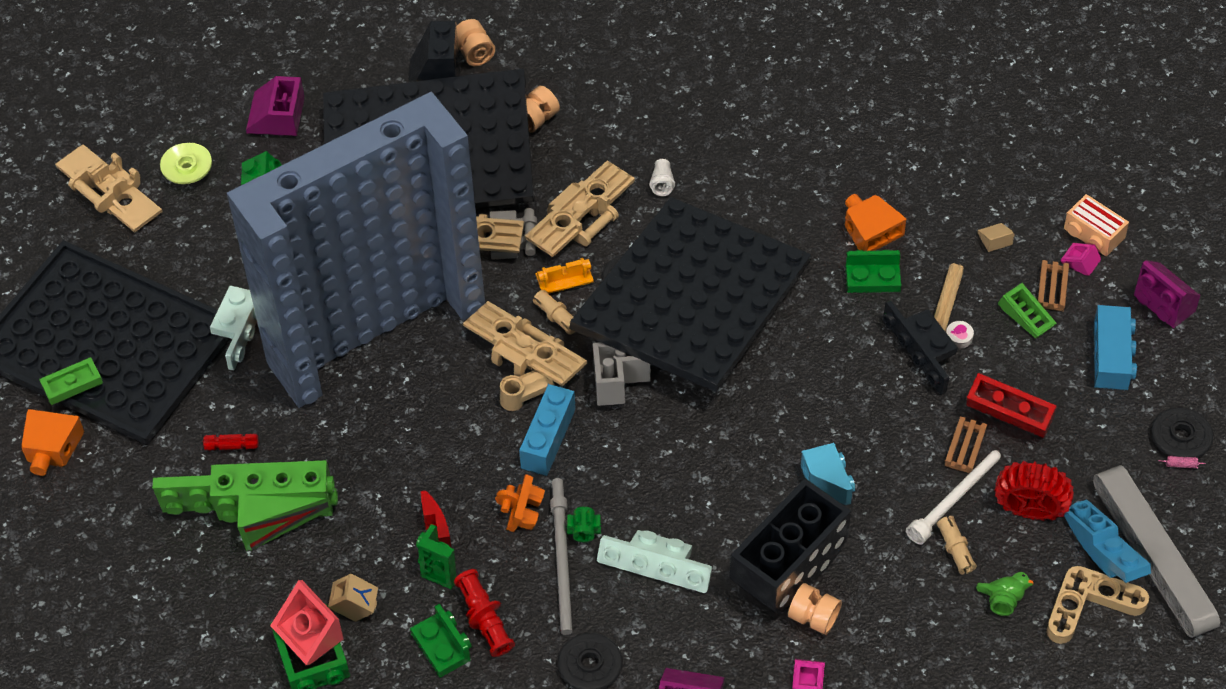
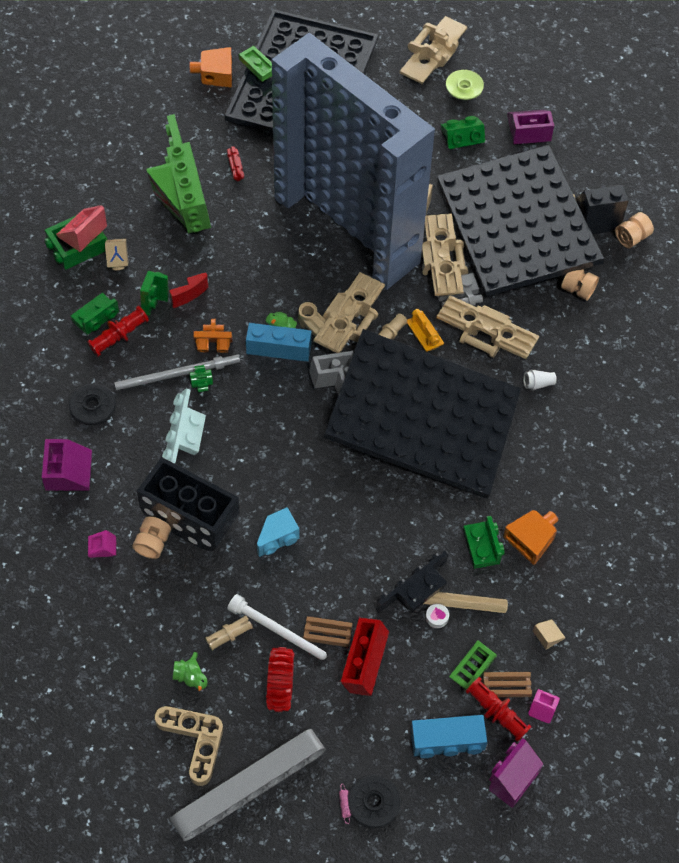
camera: 75 degrees right, 5 degrees up
(516, 422) = (280, 319): none -> bright green animal
(1087, 294) = (498, 709): none -> red piece
(1096, 225) = (578, 711): brick -> none
(1101, 542) = (245, 742): dark azure slope -> none

